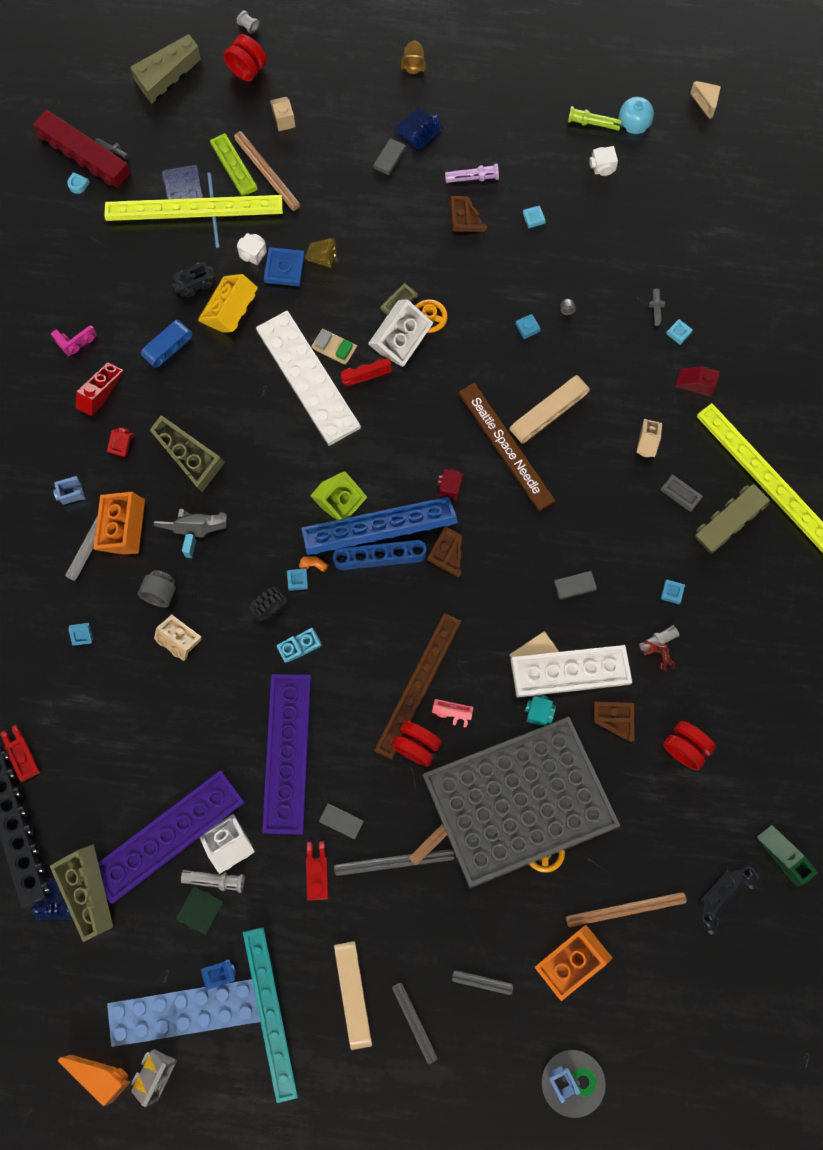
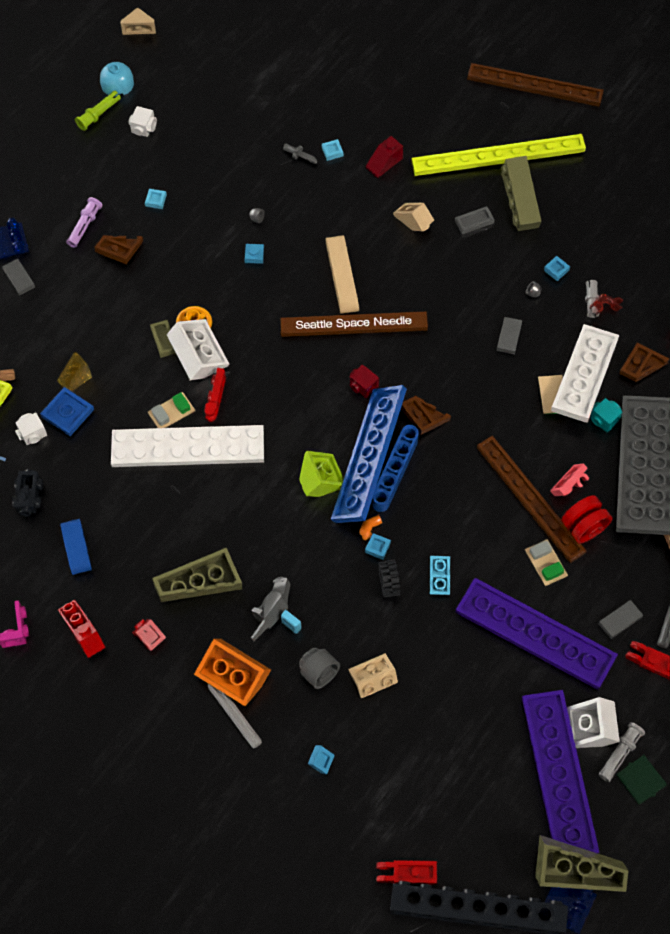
camera: 60 degrees left, 10 degrees down
(66, 485) = (165, 697): medium blue window -> none
(228, 303) = (71, 474): yellow slope -> none
(363, 730) = (546, 562): none -> piece
(636, 582) = (533, 289): none -> flat silver hinge

